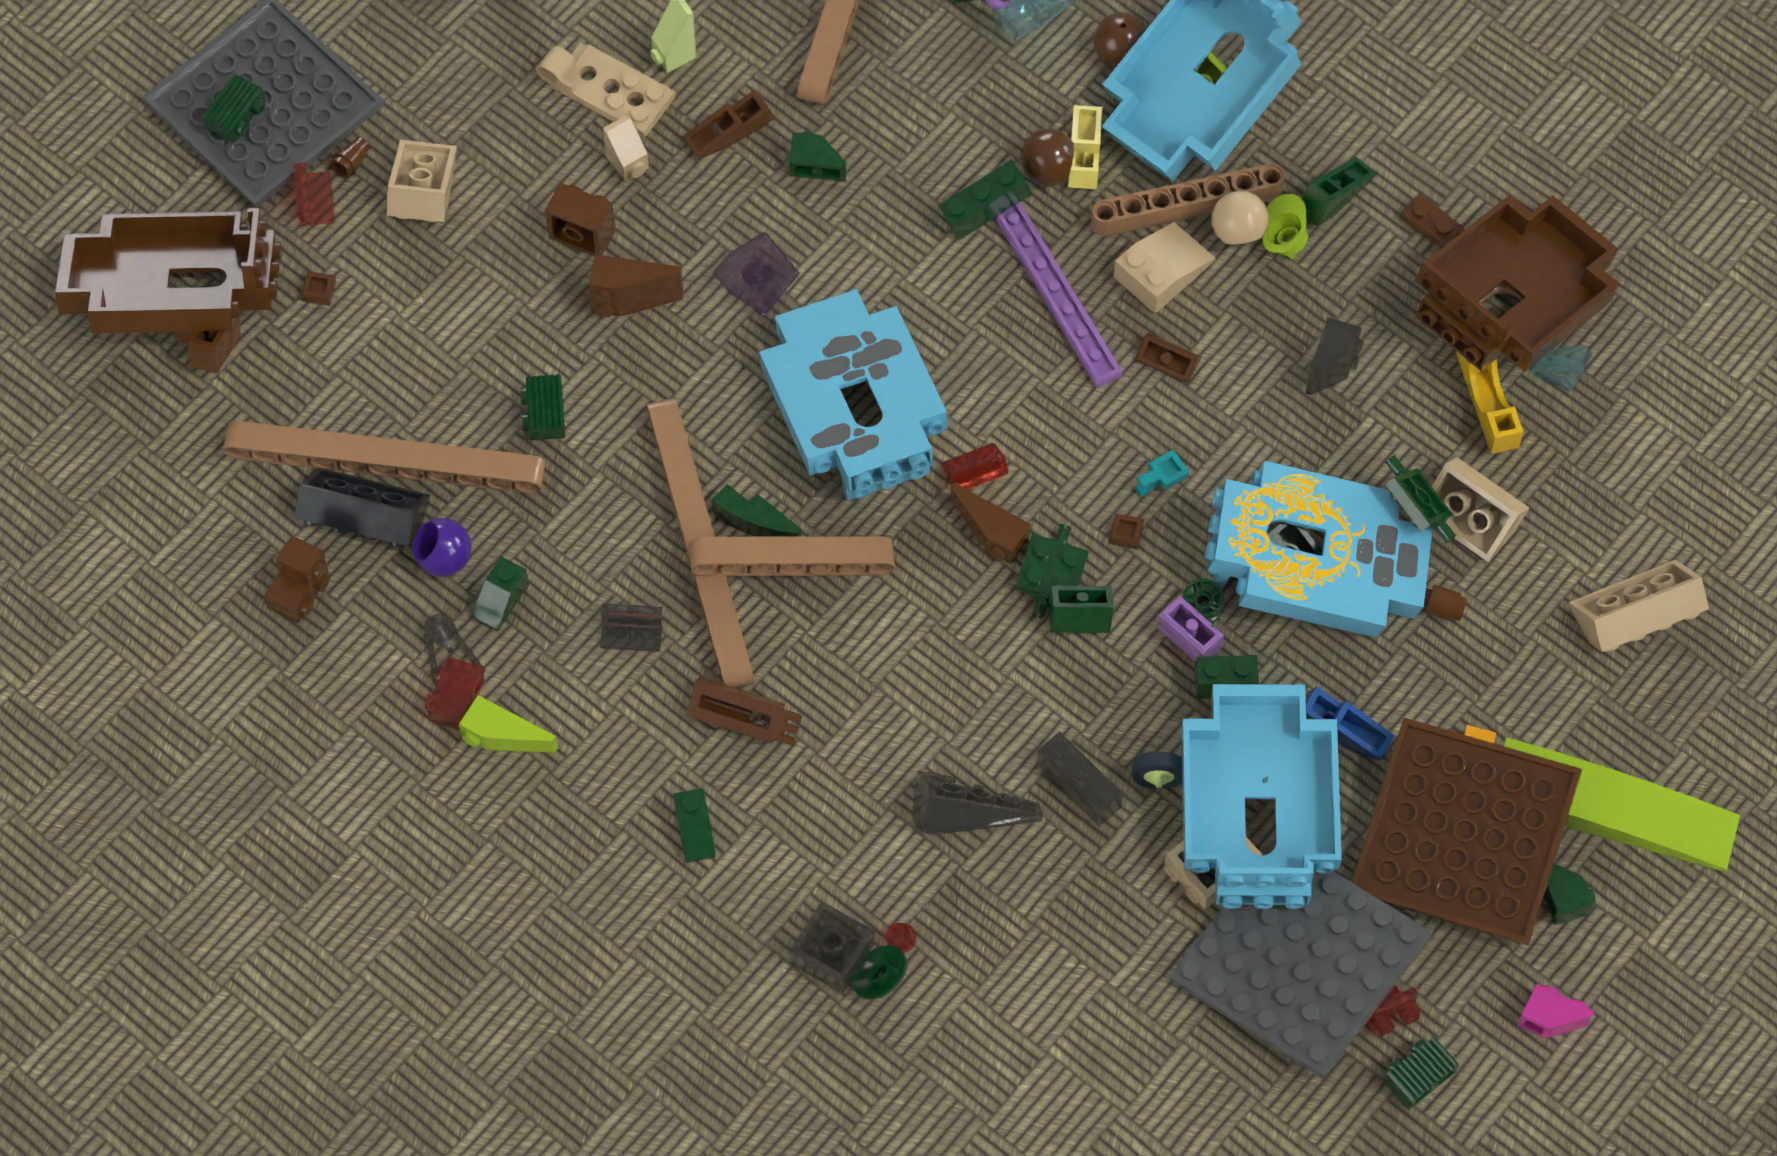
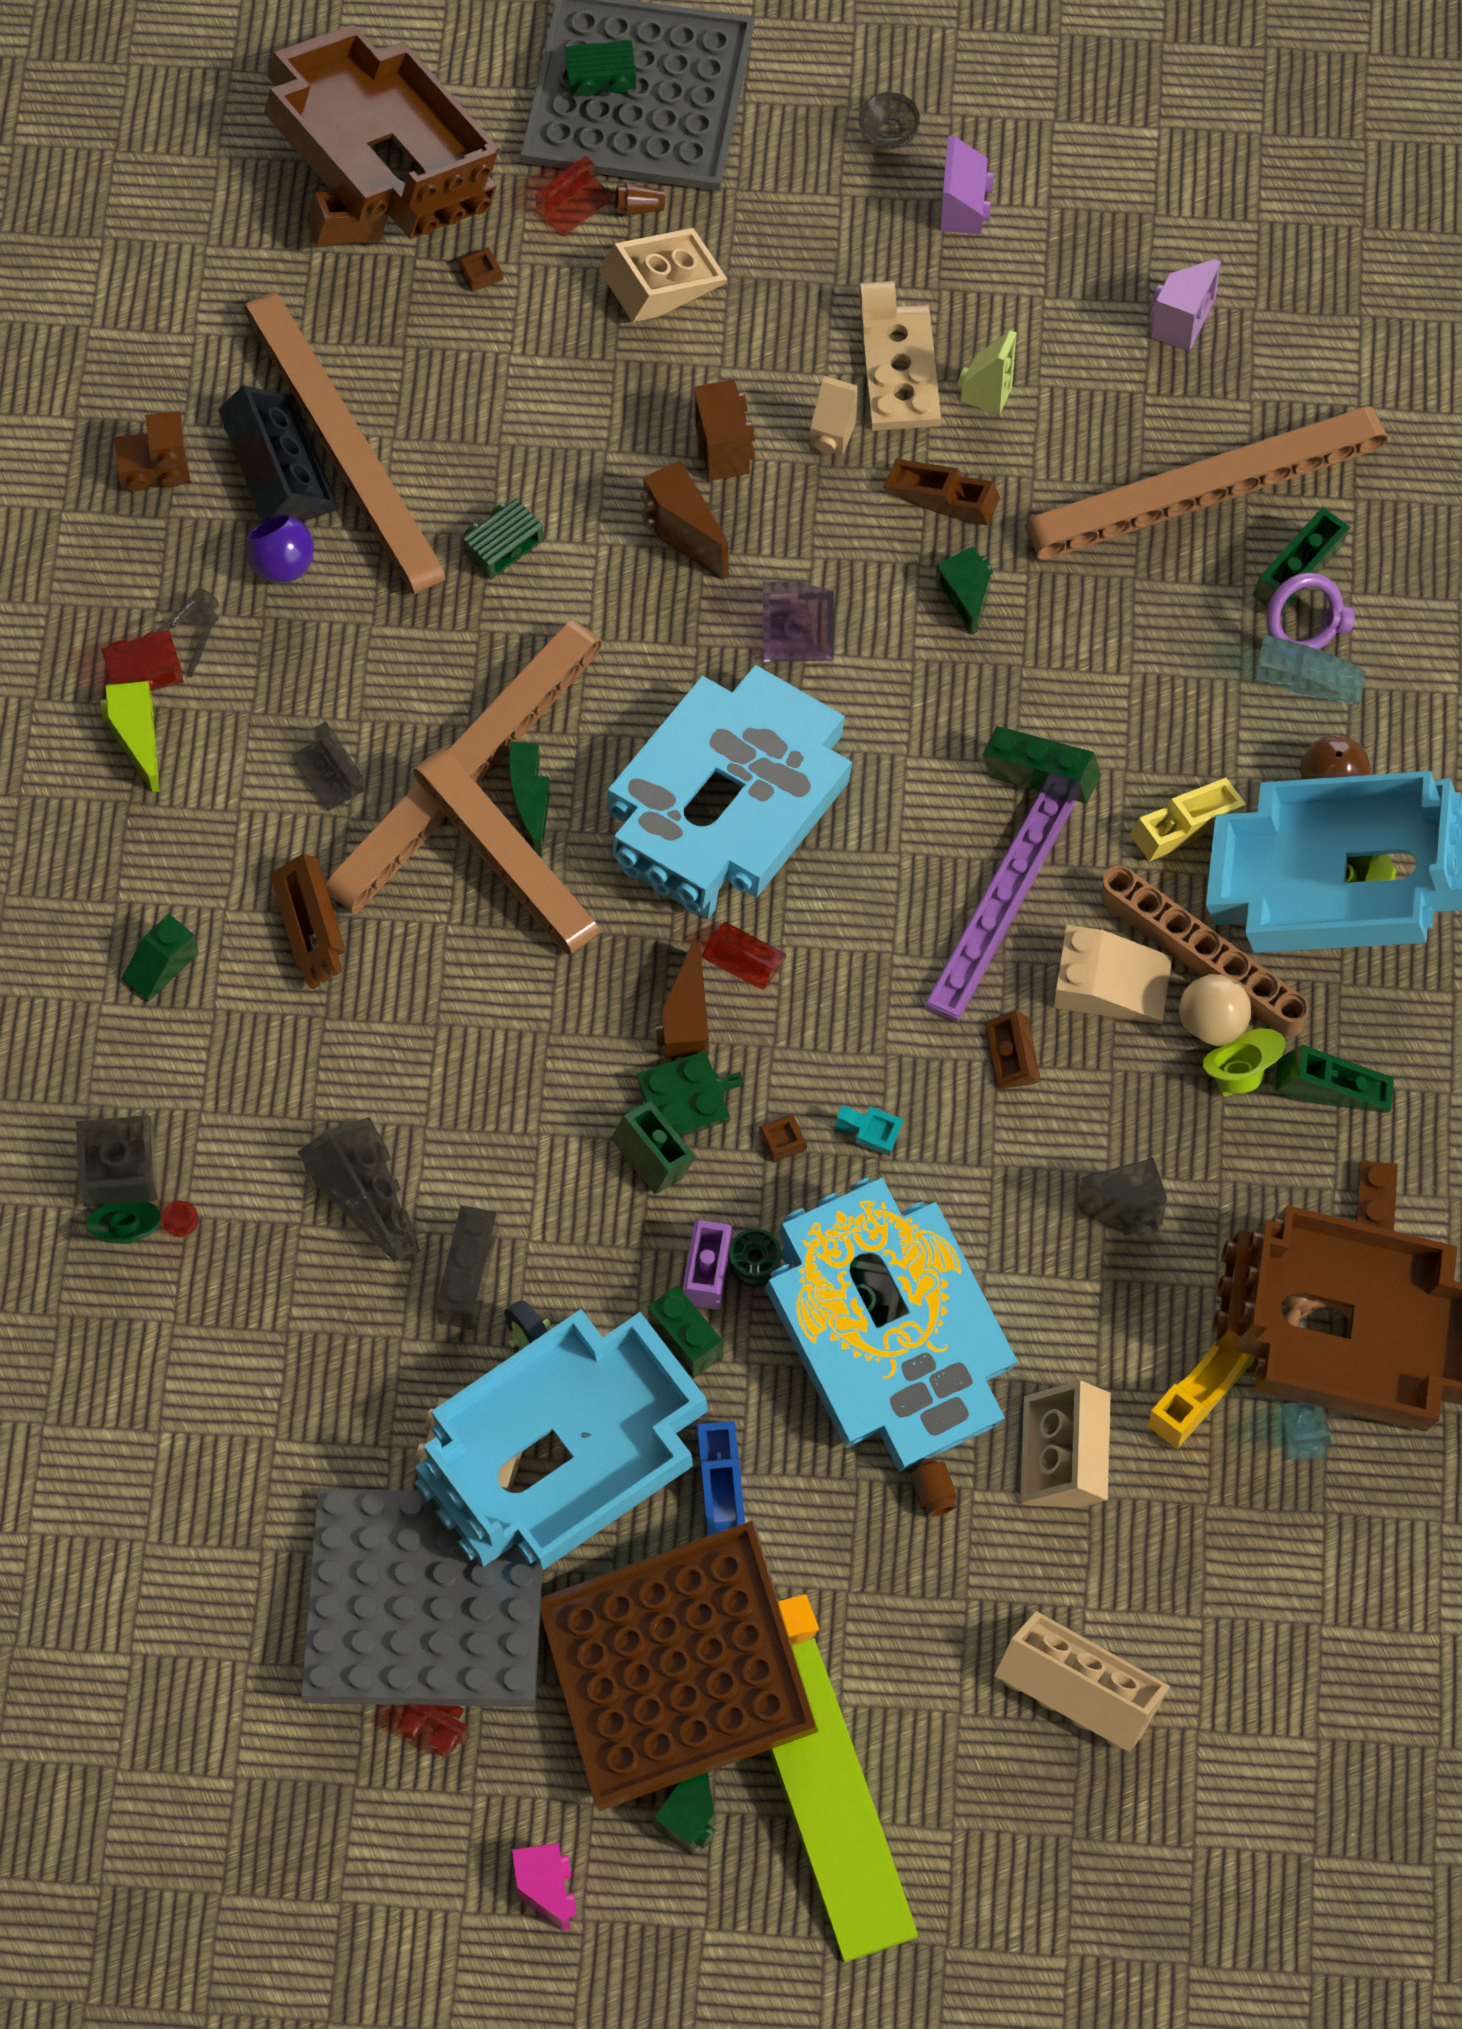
camera: 55 degrees right, 0 degrees up
(500, 593) = (276, 632): dark green slope -> none
(1047, 156) = (1137, 787): reddish brown helmet -> none
(1419, 499) = (1020, 1381): dark green plate -> none
(1420, 1072) = (384, 1794): dark green brick -> none

